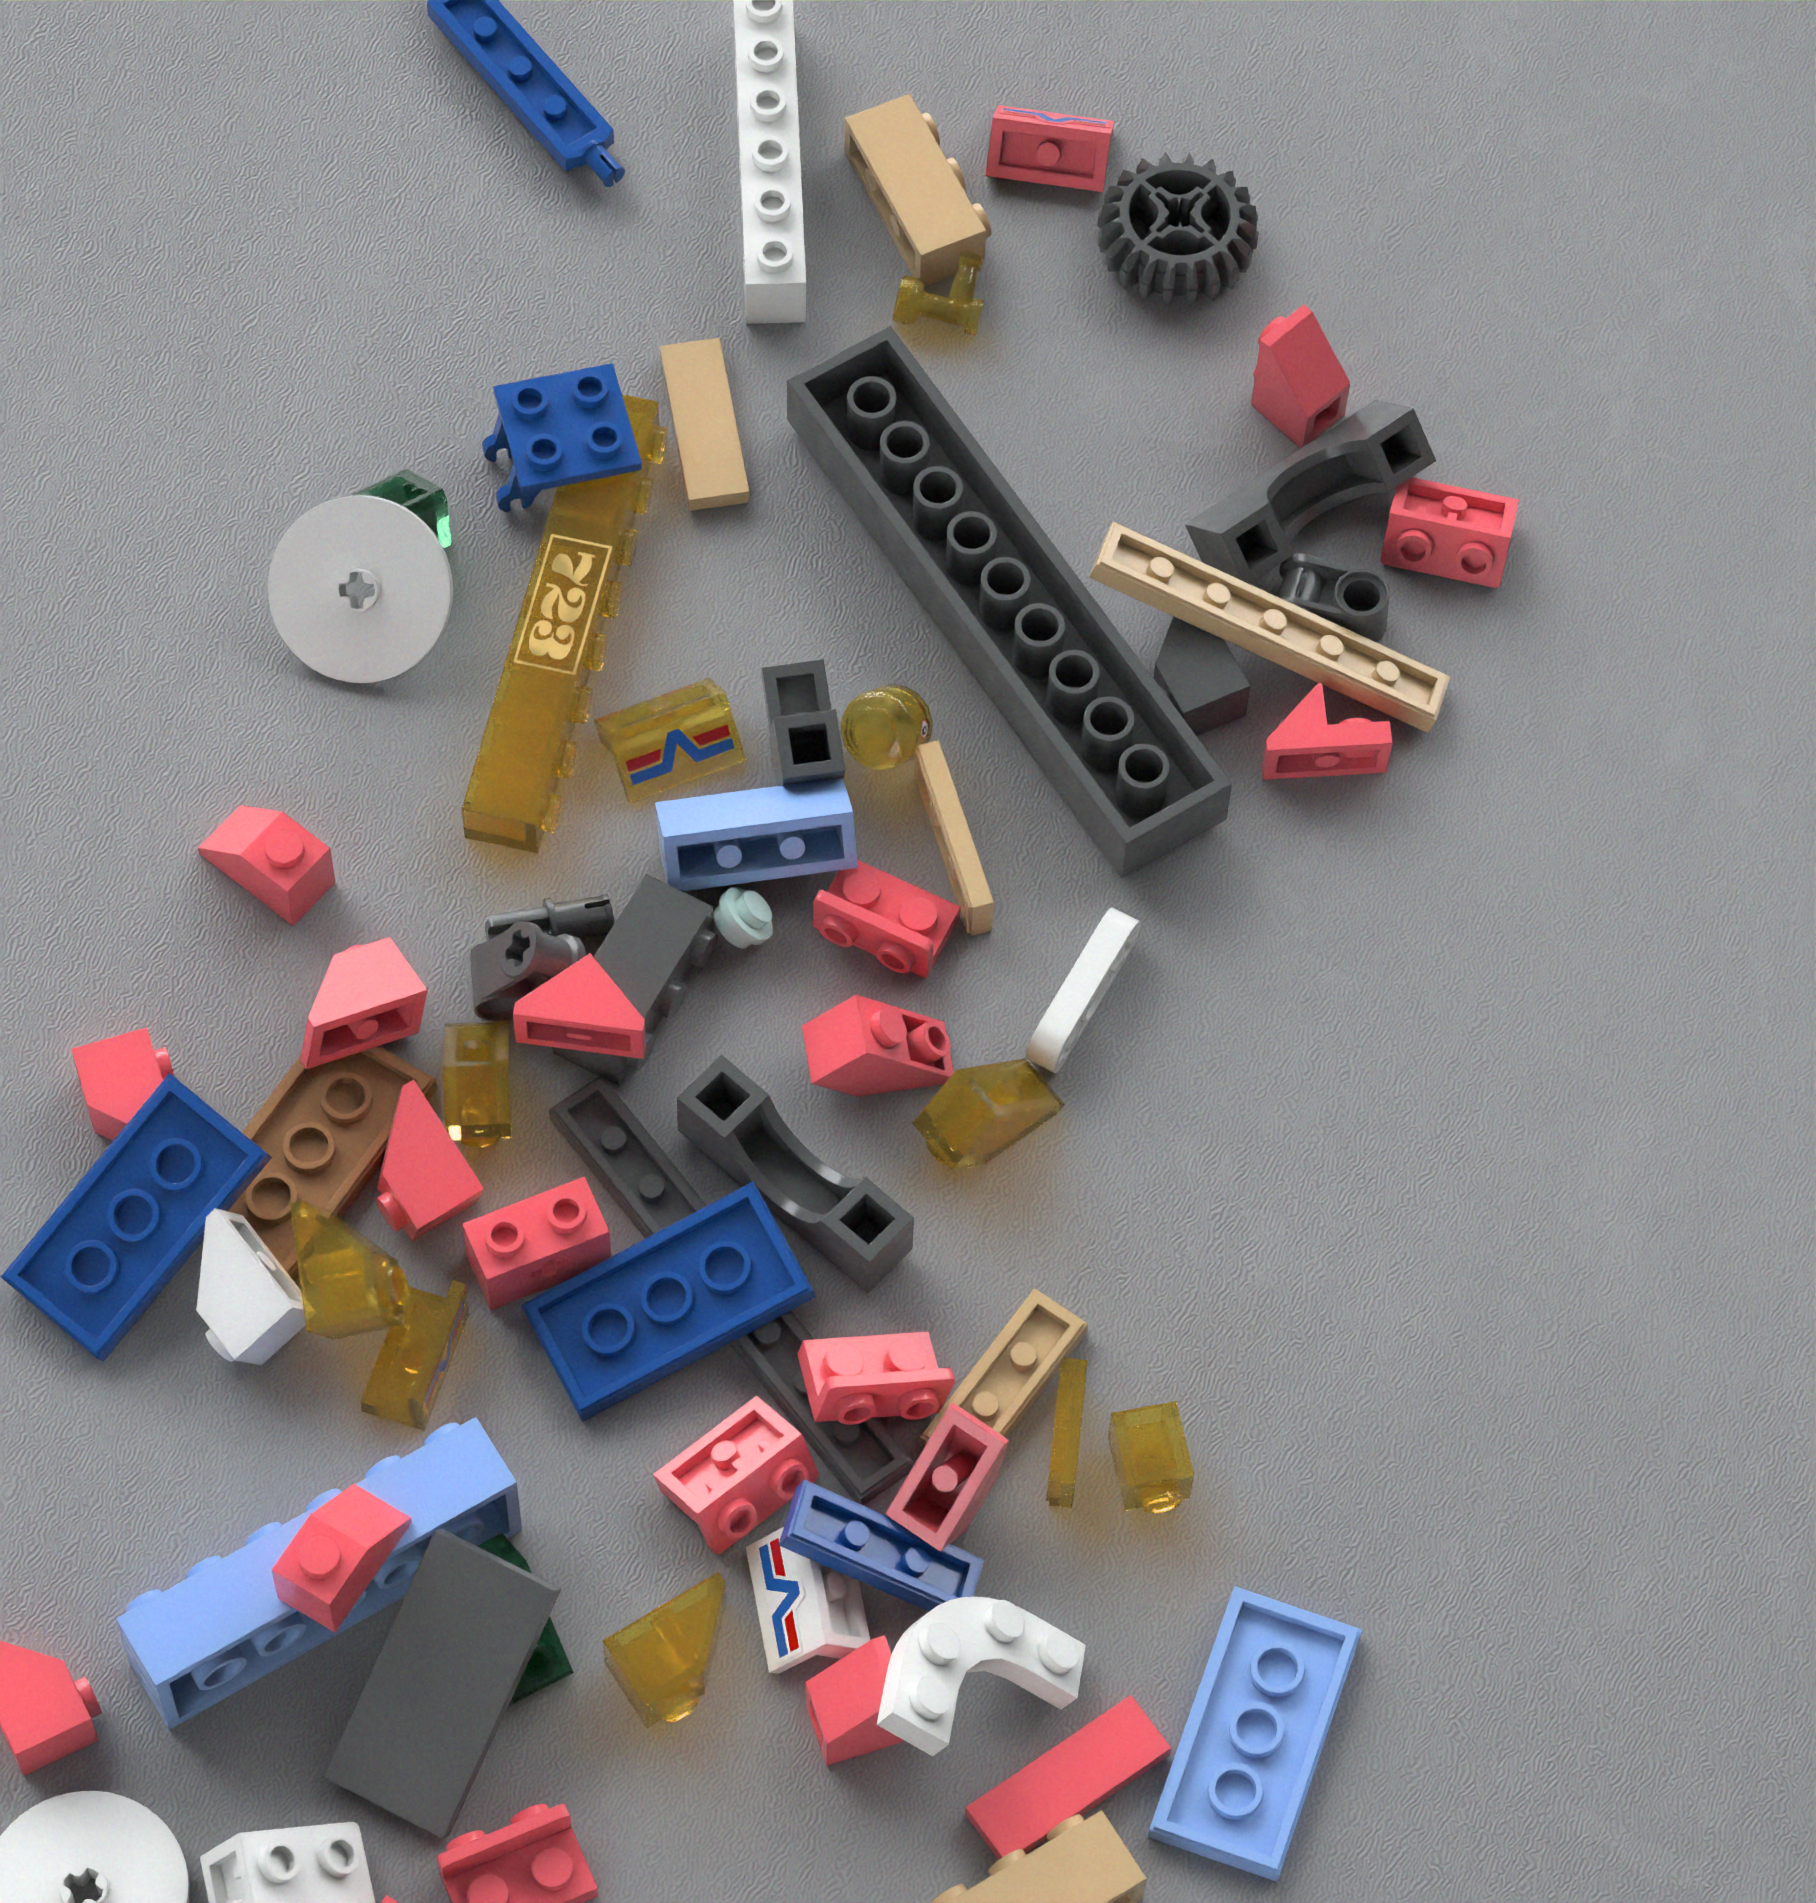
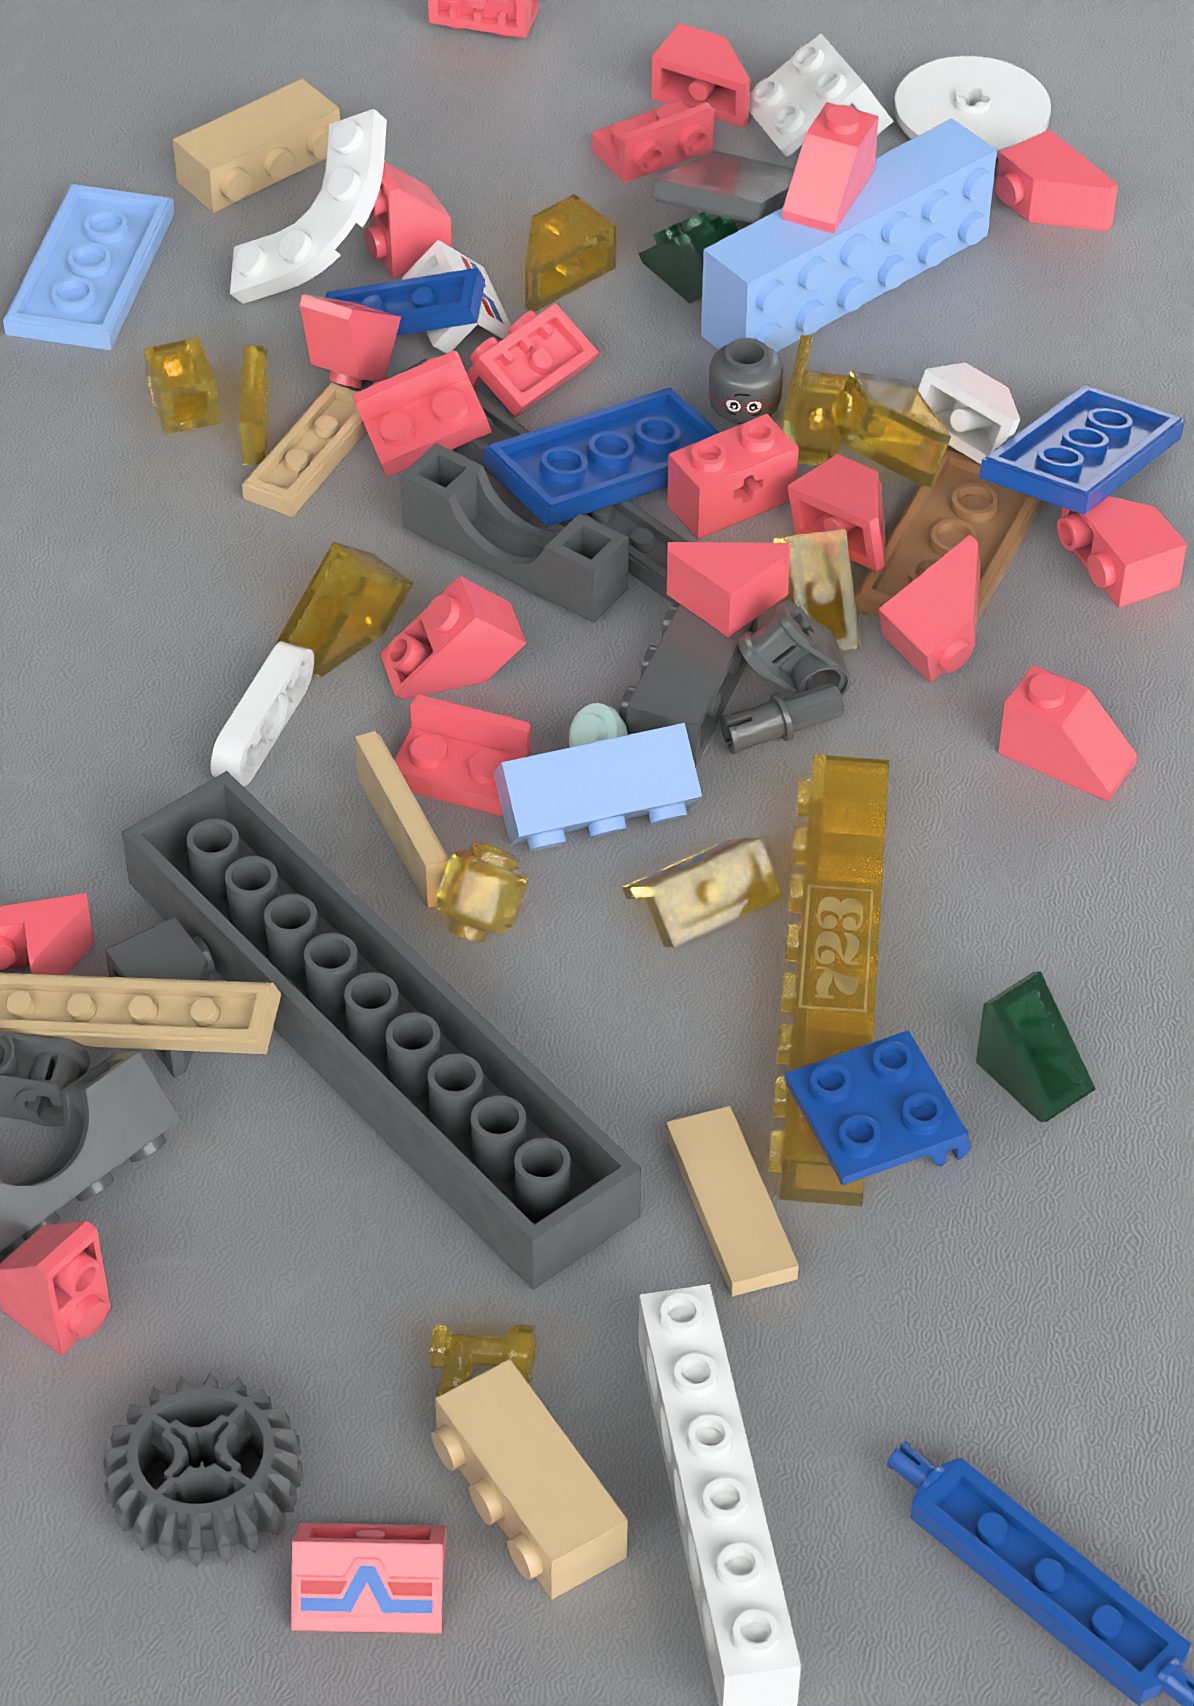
camera: 175 degrees right, 15 degrees down
(394, 554) = (1051, 945): white piece -> none
(493, 1377) = (745, 380): none -> dark grey head
(801, 723) = (563, 870): dark grey brick -> none
(1068, 1779) = (247, 217): coral tile -> none

